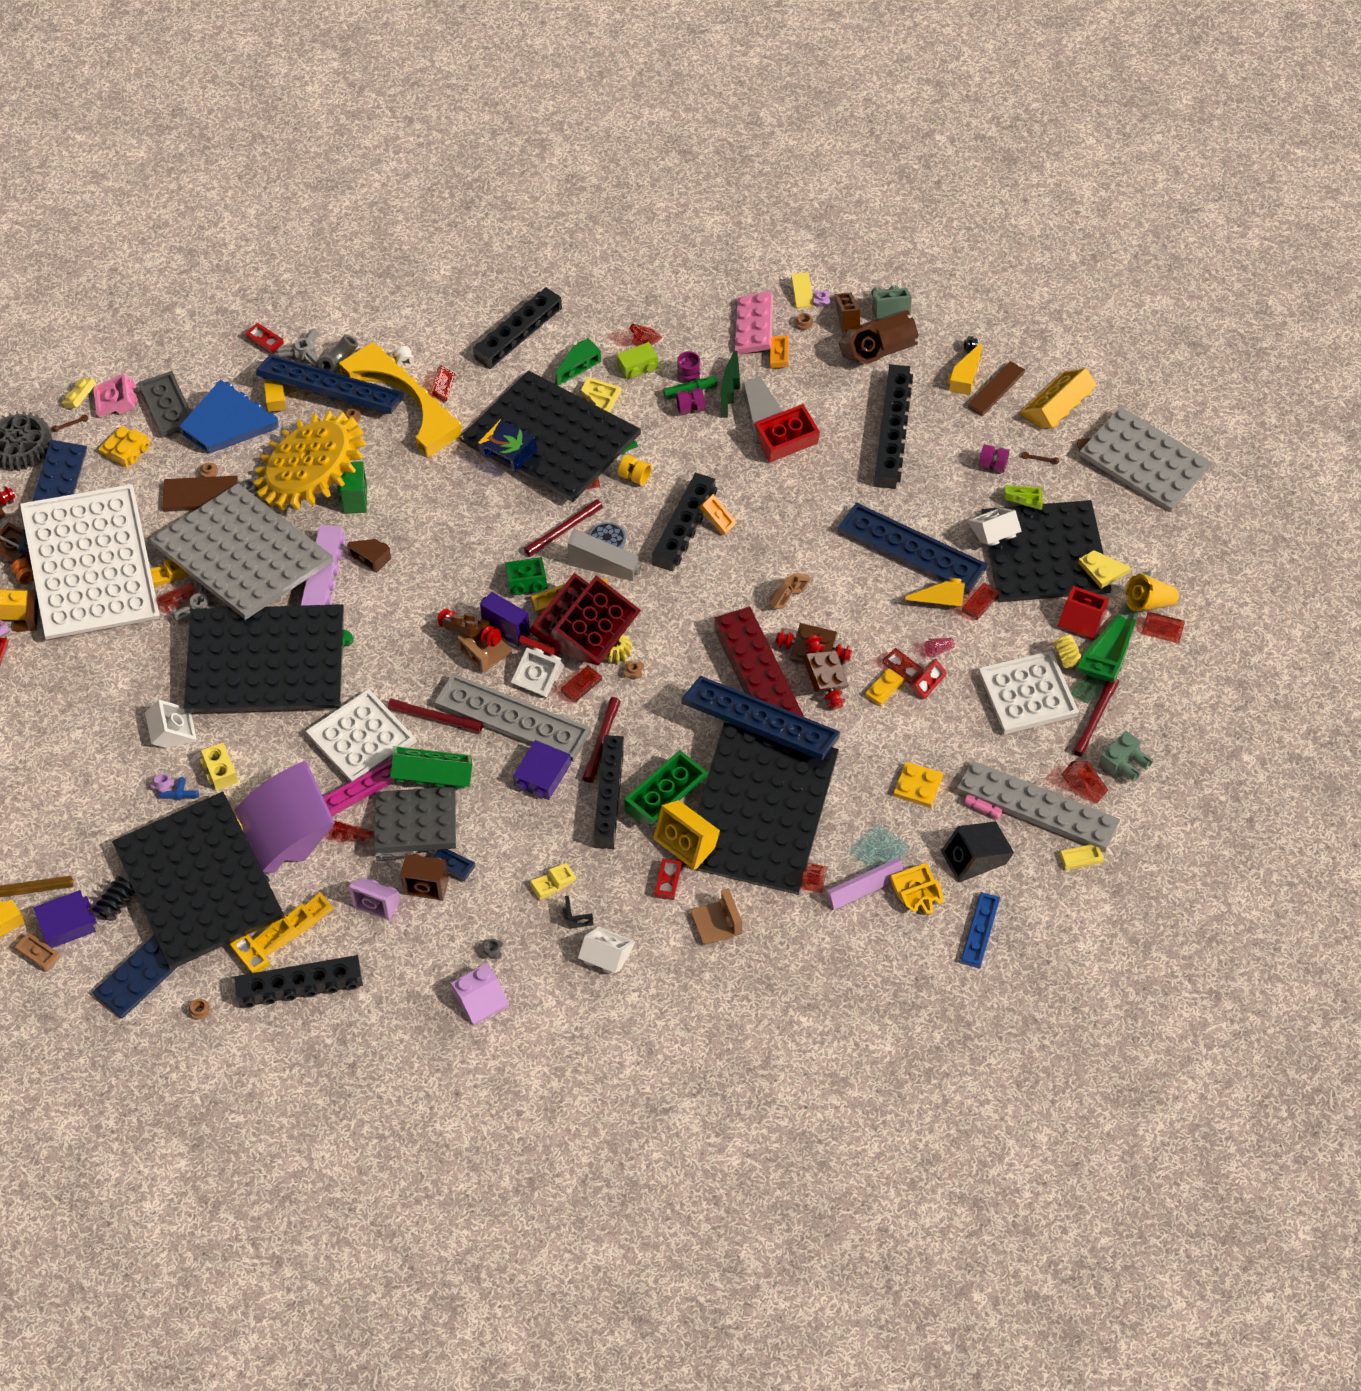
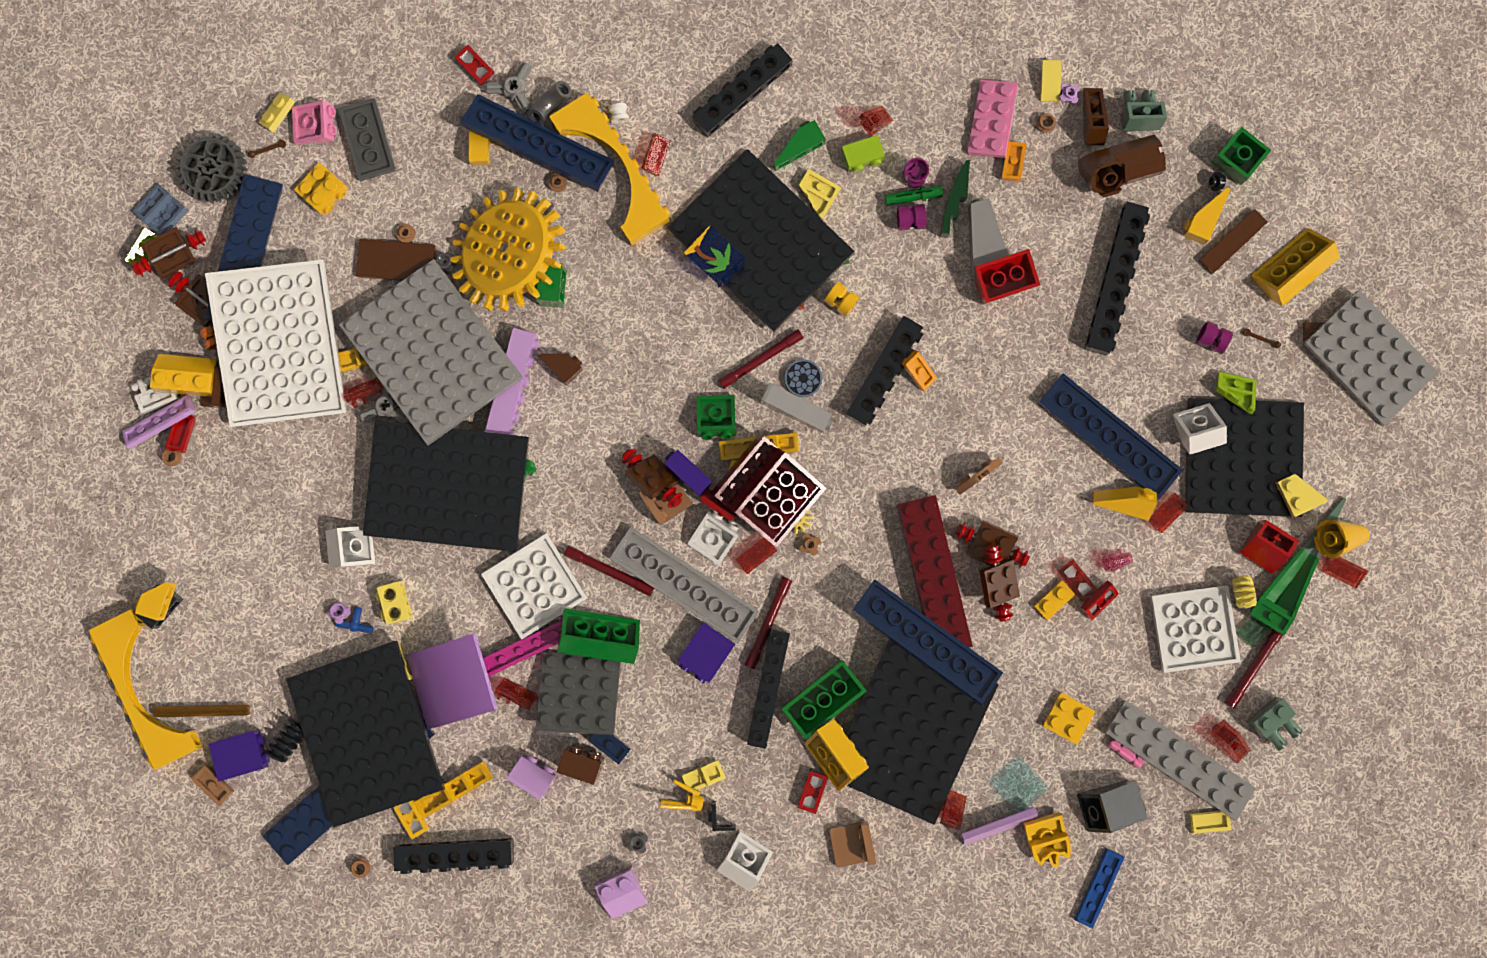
camera: 10 degrees right, 30 degrees up
(226, 419) = (426, 173): blue slope -> none
(545, 901) = (693, 802): none -> yellow plant
(987, 321) = (1241, 155): none -> green brick

